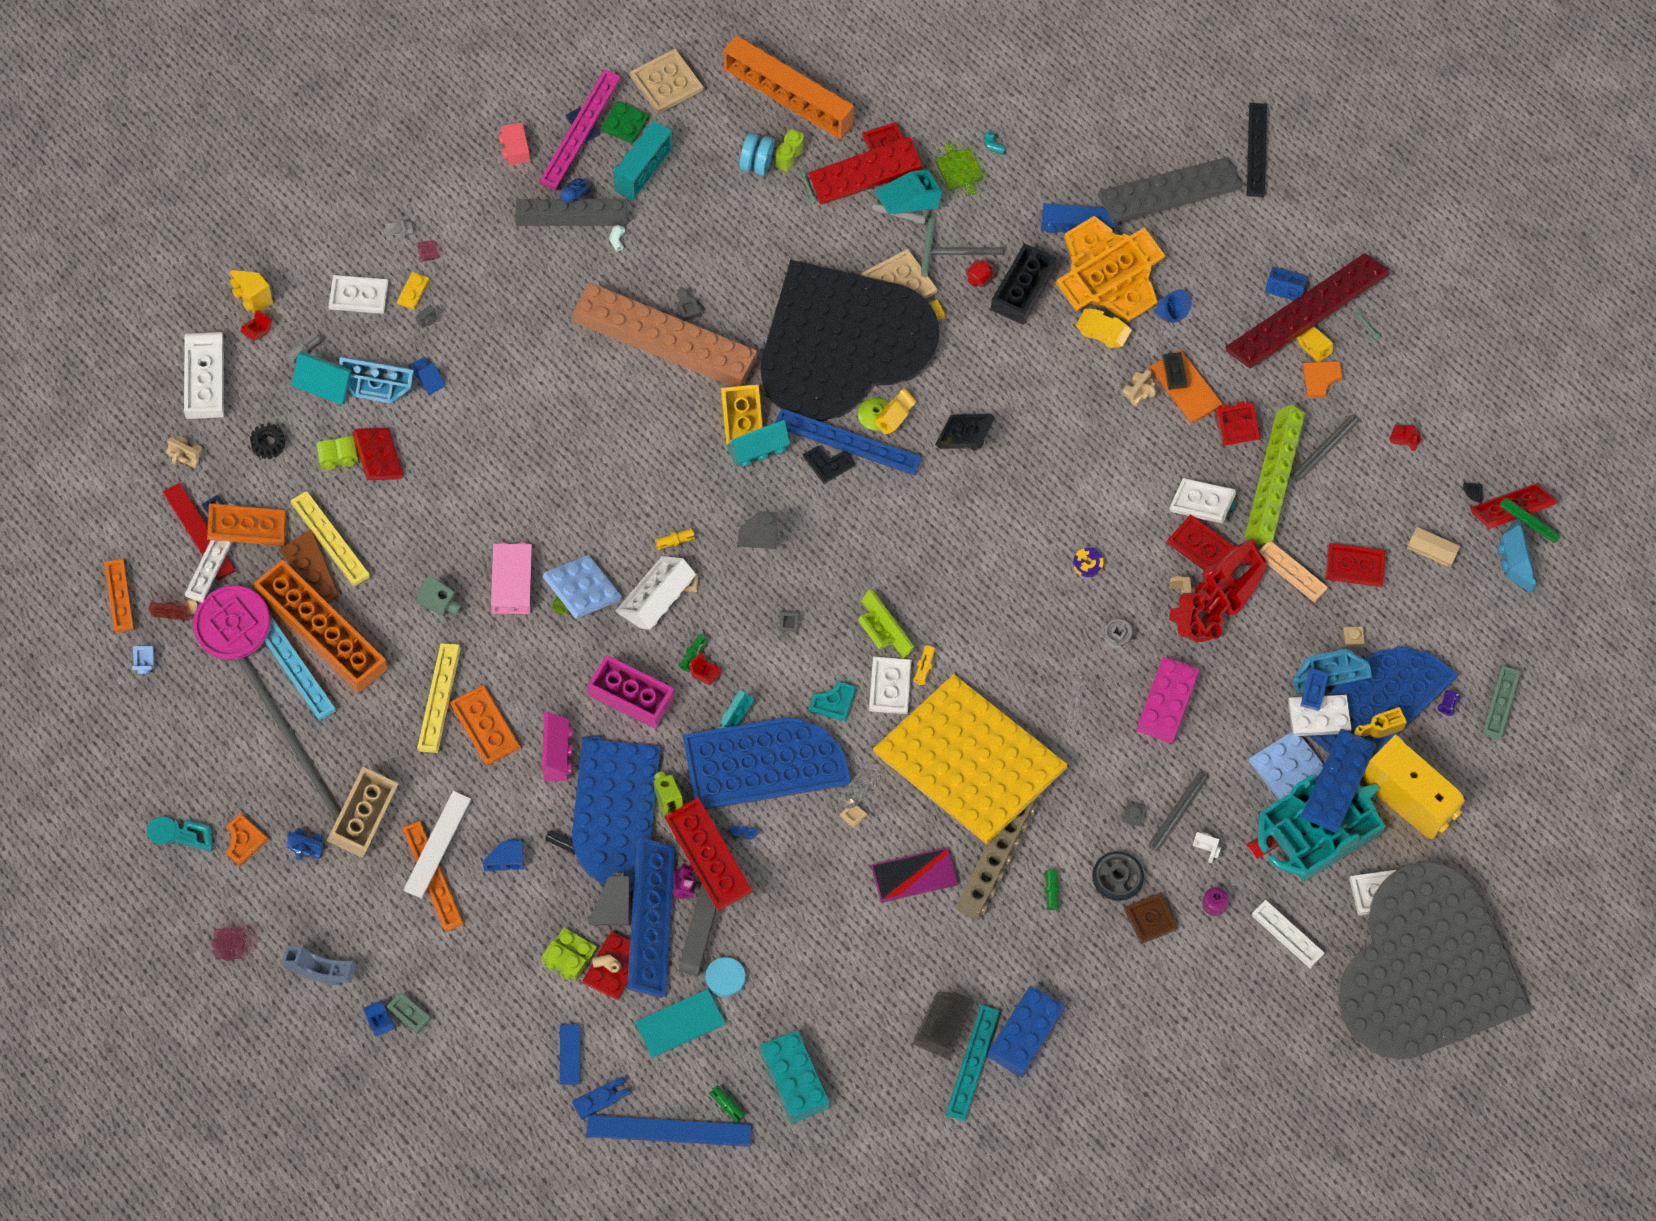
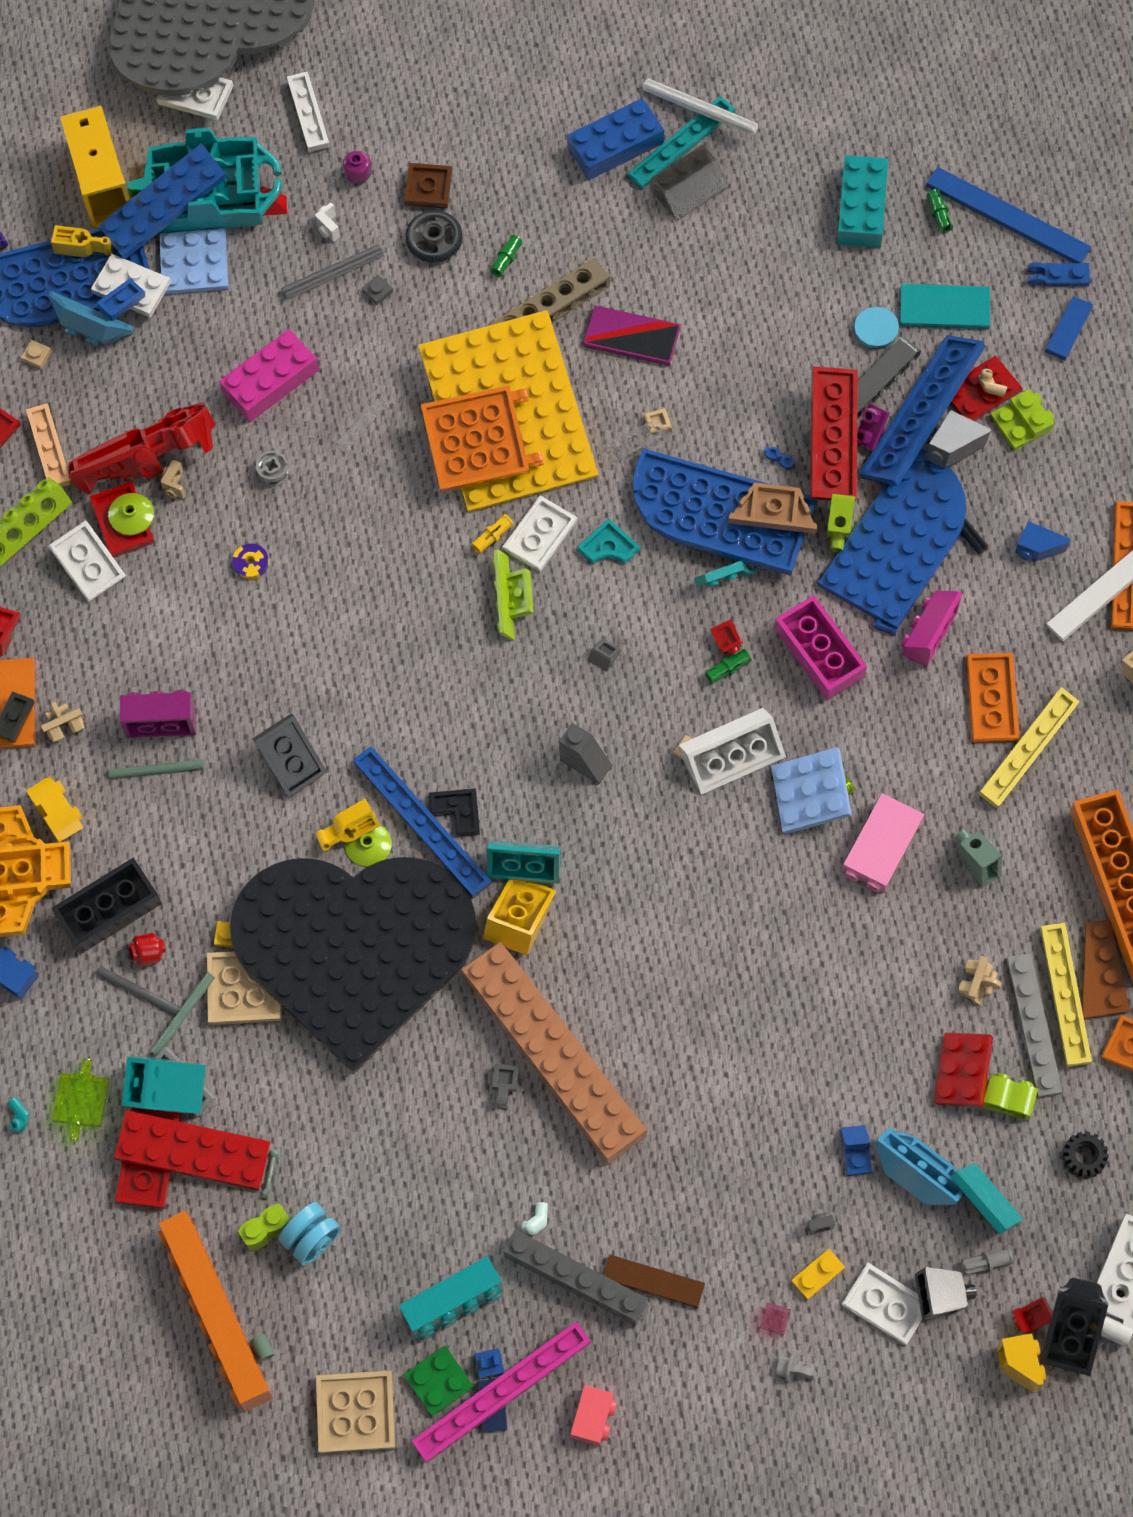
camera: 145 degrees left, 5 degrees up
(224, 323) = (1075, 1327): none -> black slope
(323, 310) = (942, 1292): none -> torso
(343, 511) = (1034, 1025): none -> light grey plate
(392, 518) = (983, 981): none -> tan hips
(519, 238) = (654, 1281): none -> reddish brown tile
(575, 189) = (556, 1299): blue plate -> none
(598, 145) = (489, 1363): none -> blue tile
(674, 539) = (677, 802): yellow pin -> none
(721, 775) = (774, 508): none -> medium nougat wing
(747, 88) = (262, 1348): none -> sand green hinge
(974, 1095) = (700, 106): none -> white axle
(976, 716) = (477, 438): none -> orange plate
(1054, 392) = (156, 769): none -> sand green bar
(1075, 416) = (157, 714): none -> magenta brick
(1195, 555) = (134, 522): none -> lime dish

